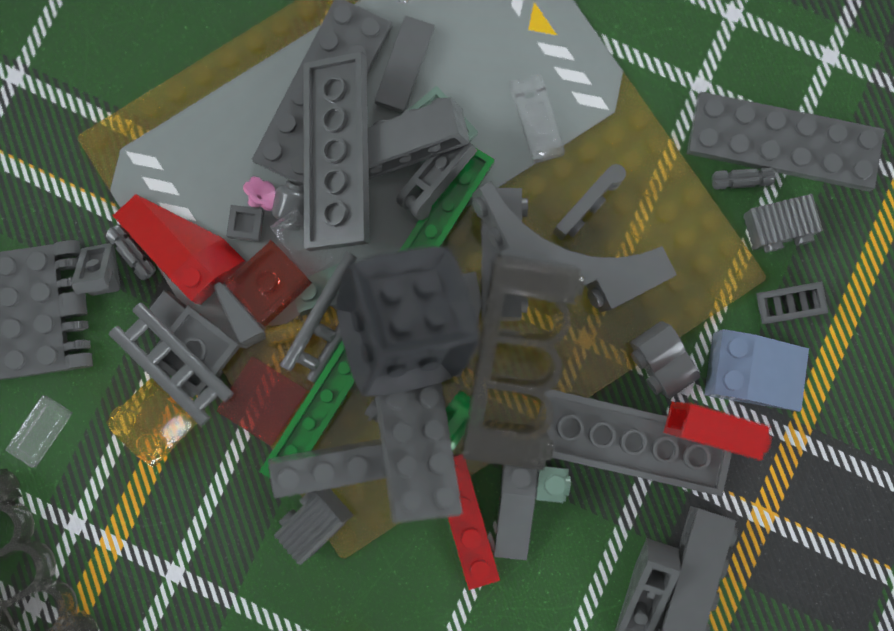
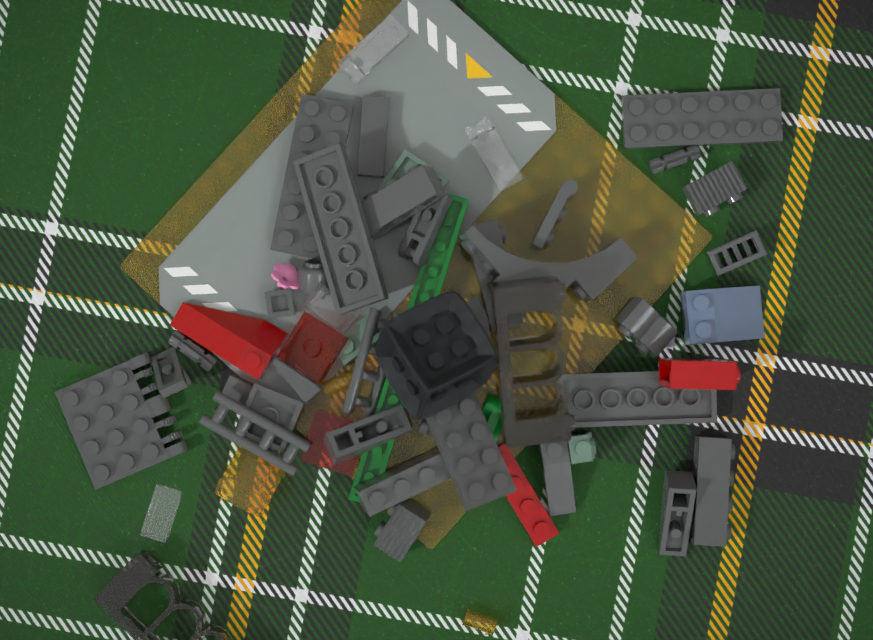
camera: 15 degrees left, 5 degrees up
(299, 399) = (366, 434): none -> dark grey slope

